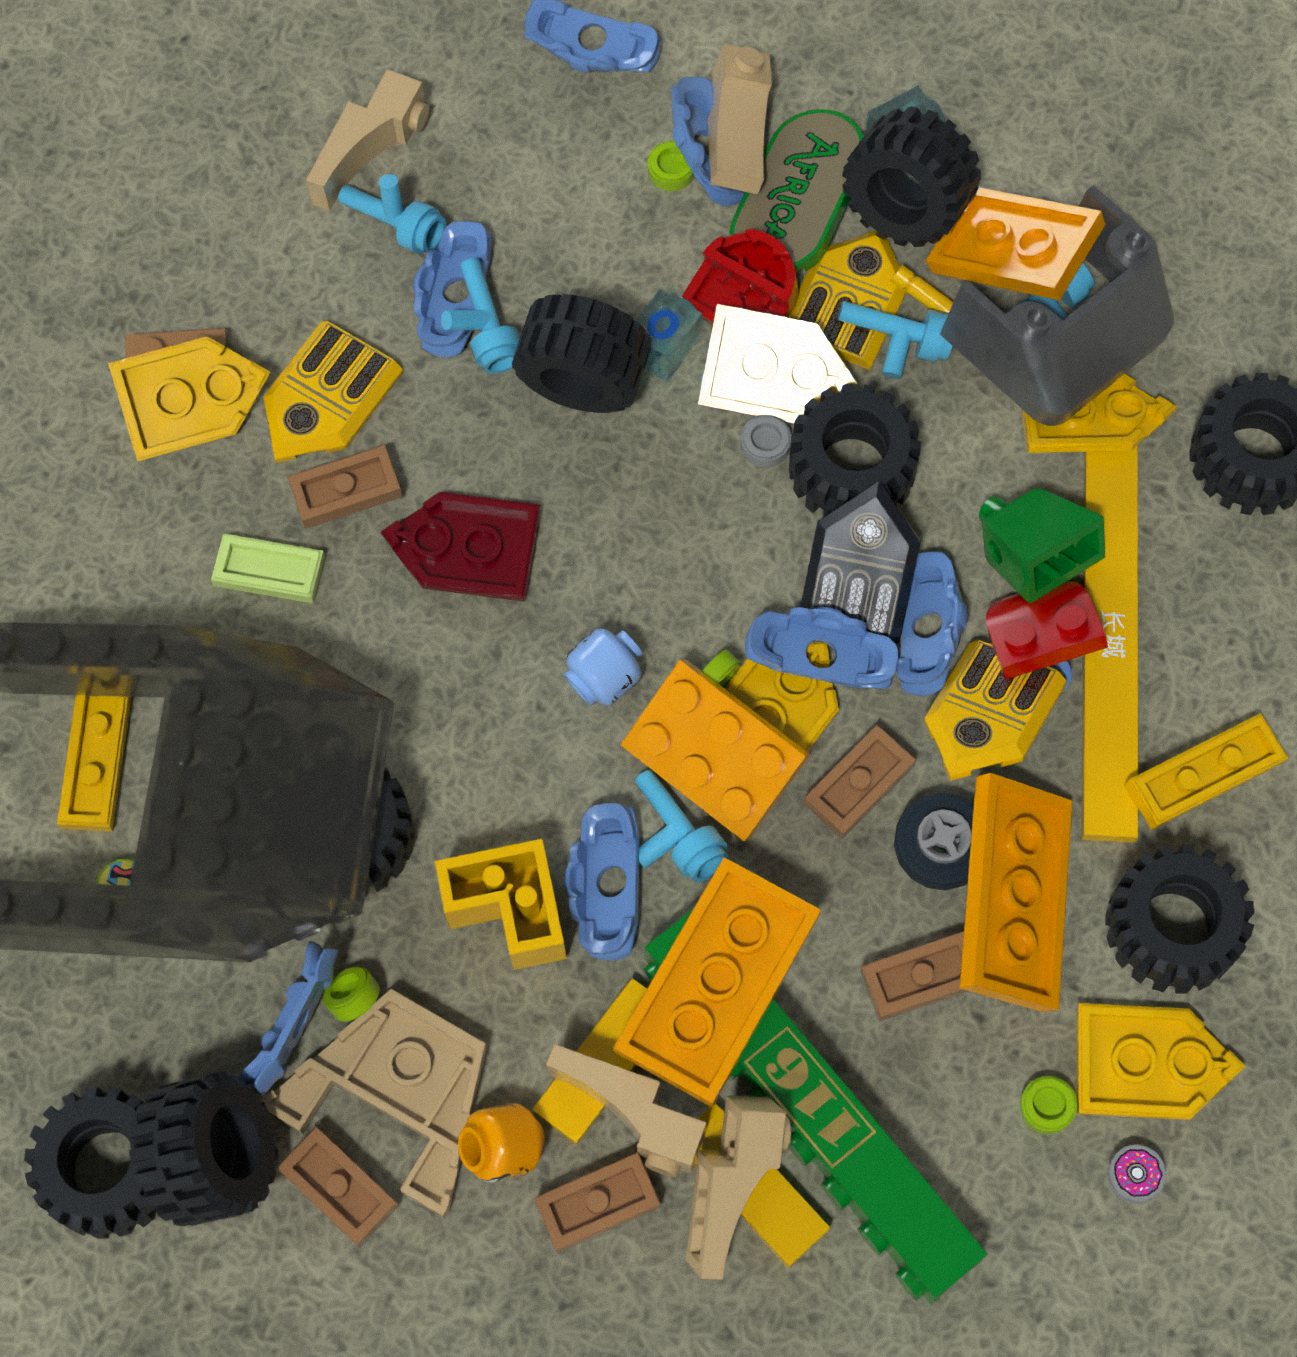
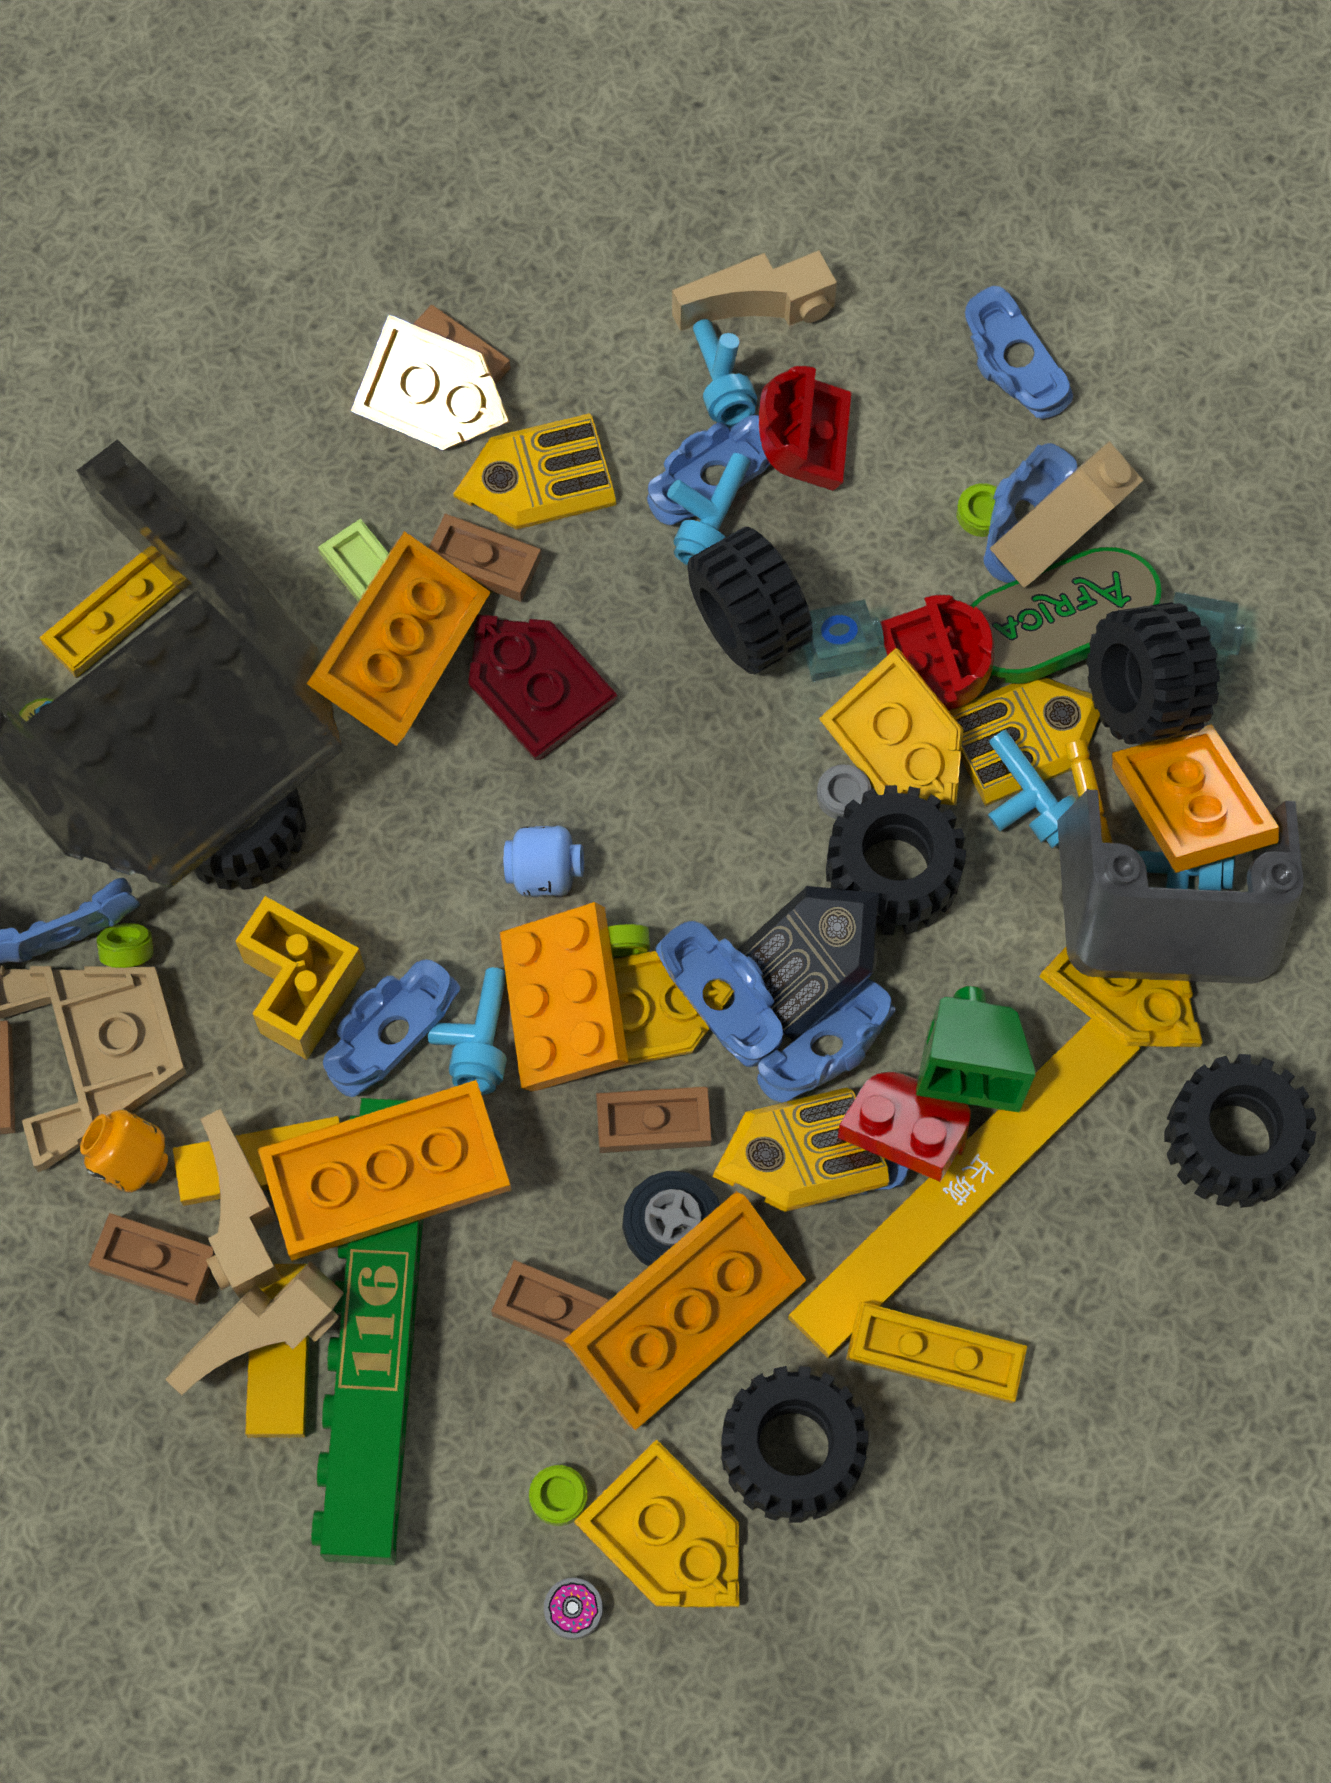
camera: 40 degrees right, 0 degrees up
(349, 592) = (399, 638): none -> light orange plate
(497, 203) = (805, 427): none -> red slope

